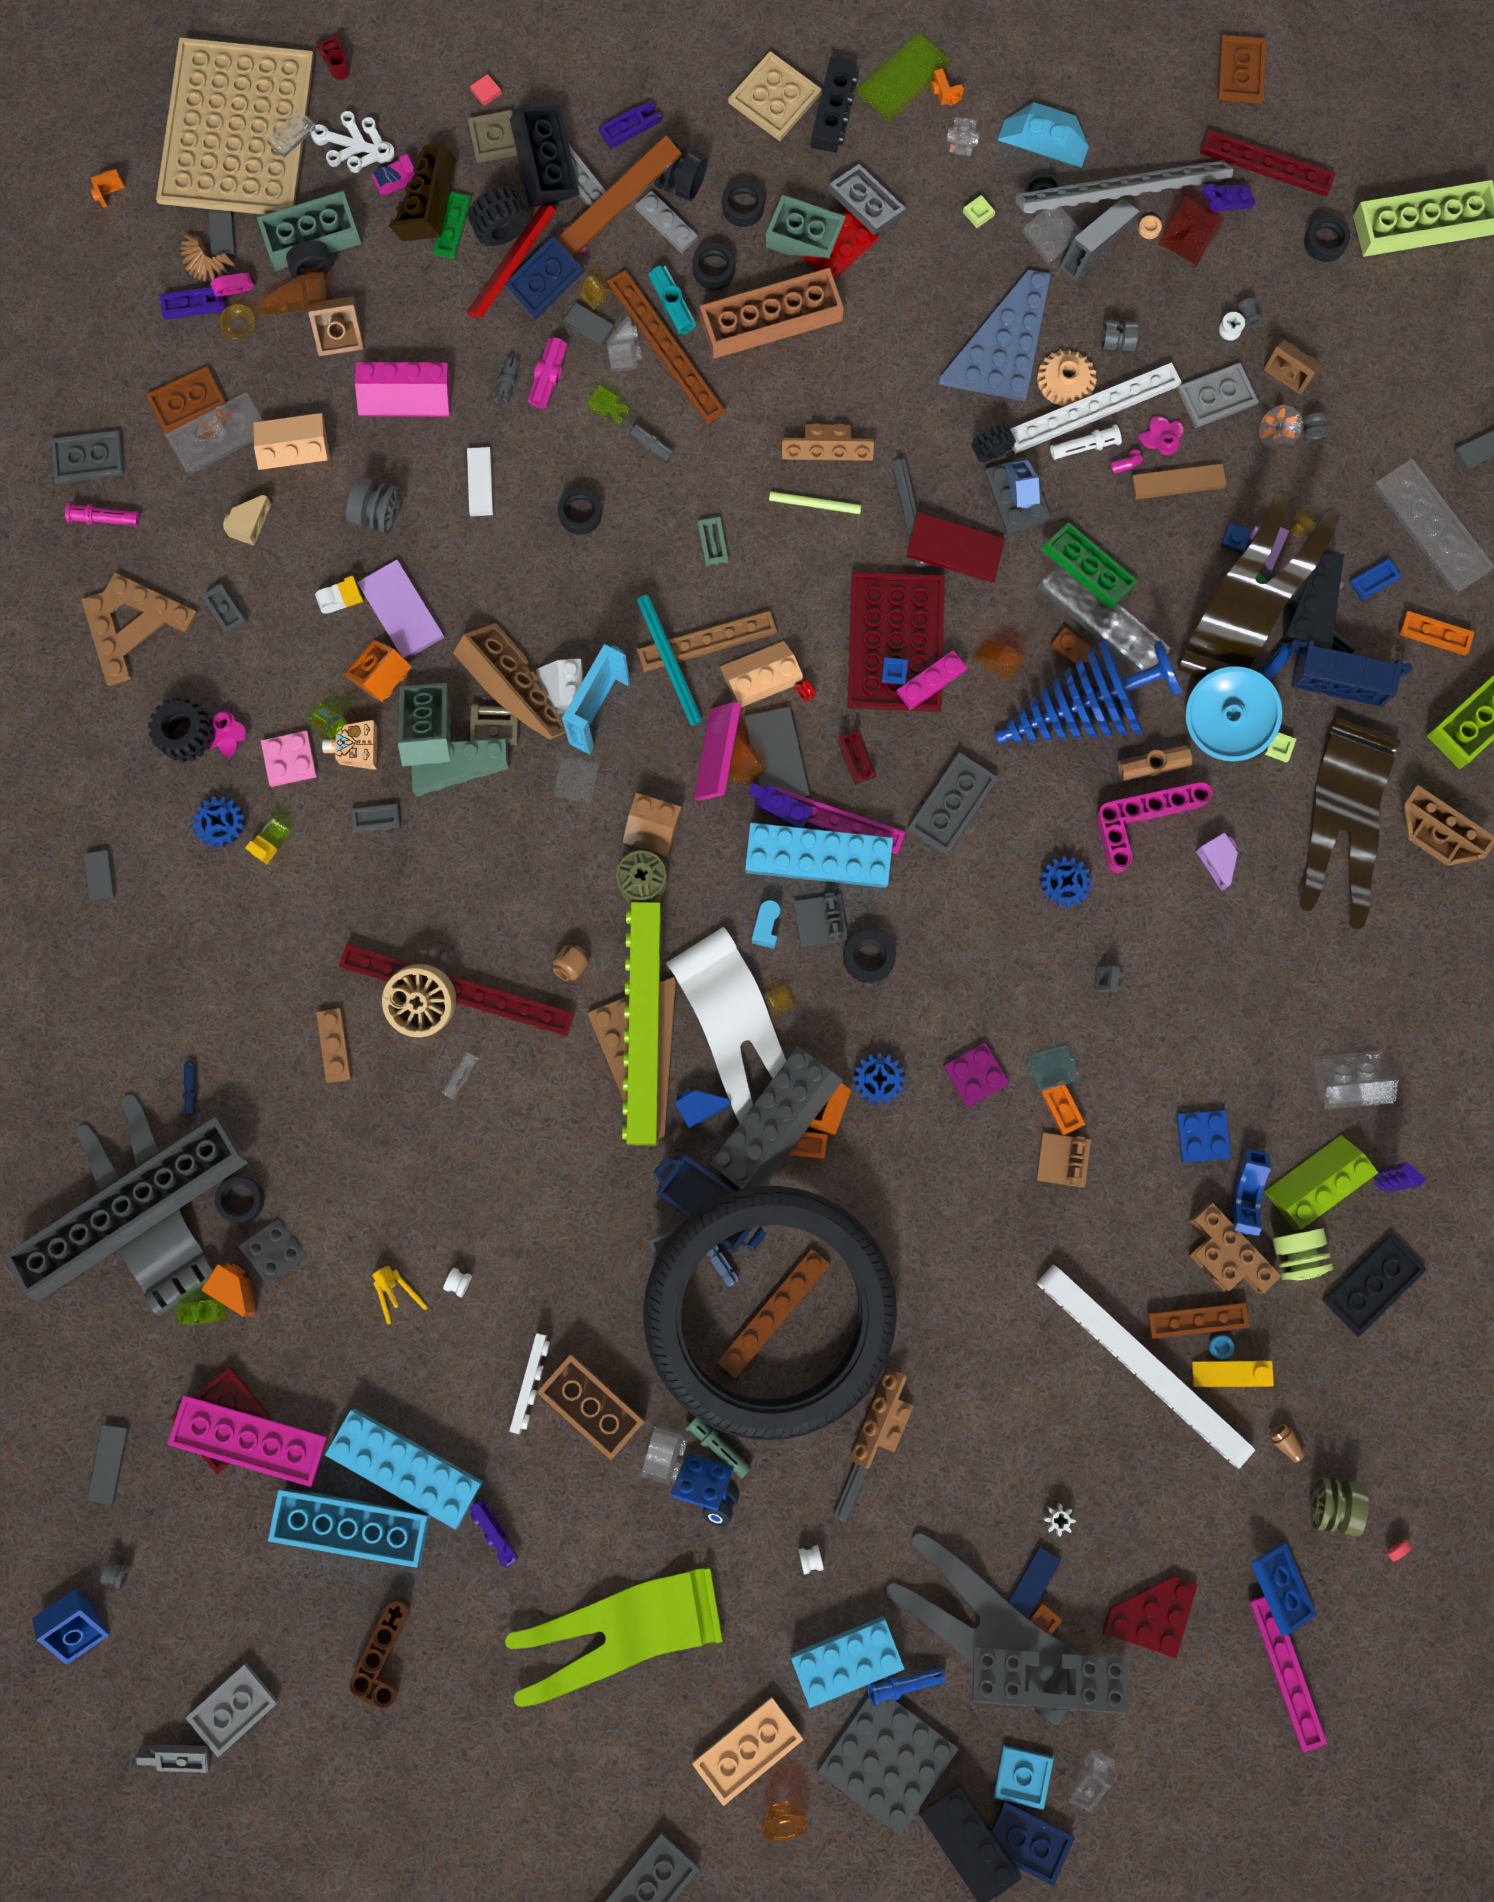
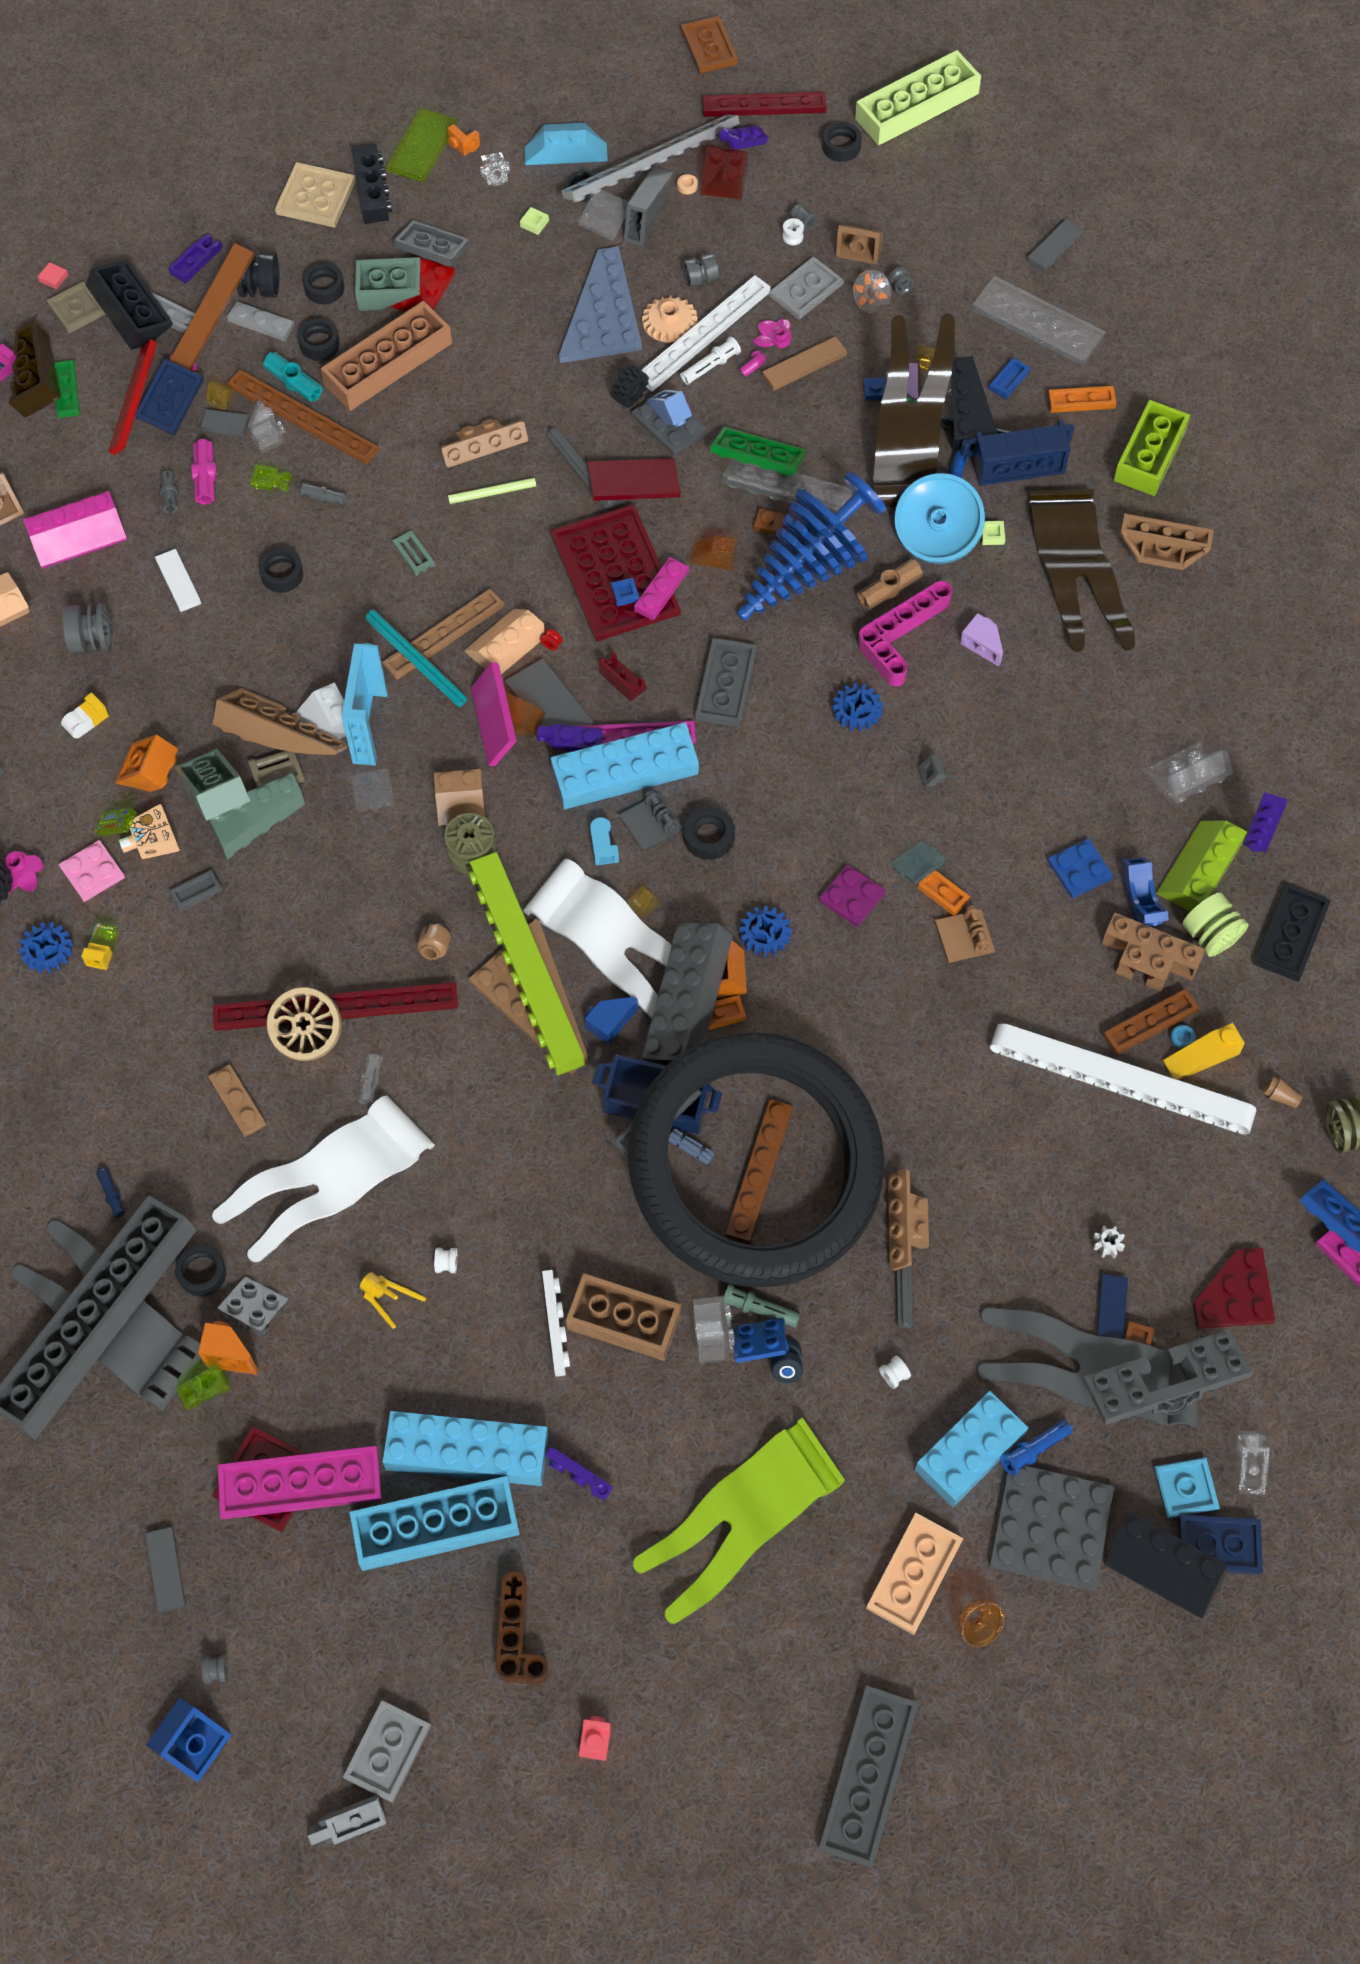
camera: 20 degrees left, 15 degrees down
(400, 610) = (147, 708): lavender tile -> none
(403, 1152) = (340, 1165): none -> white flag
(411, 1776) = (595, 1738): none -> coral bracket
(498, 216) = (107, 362): black tyre -> none

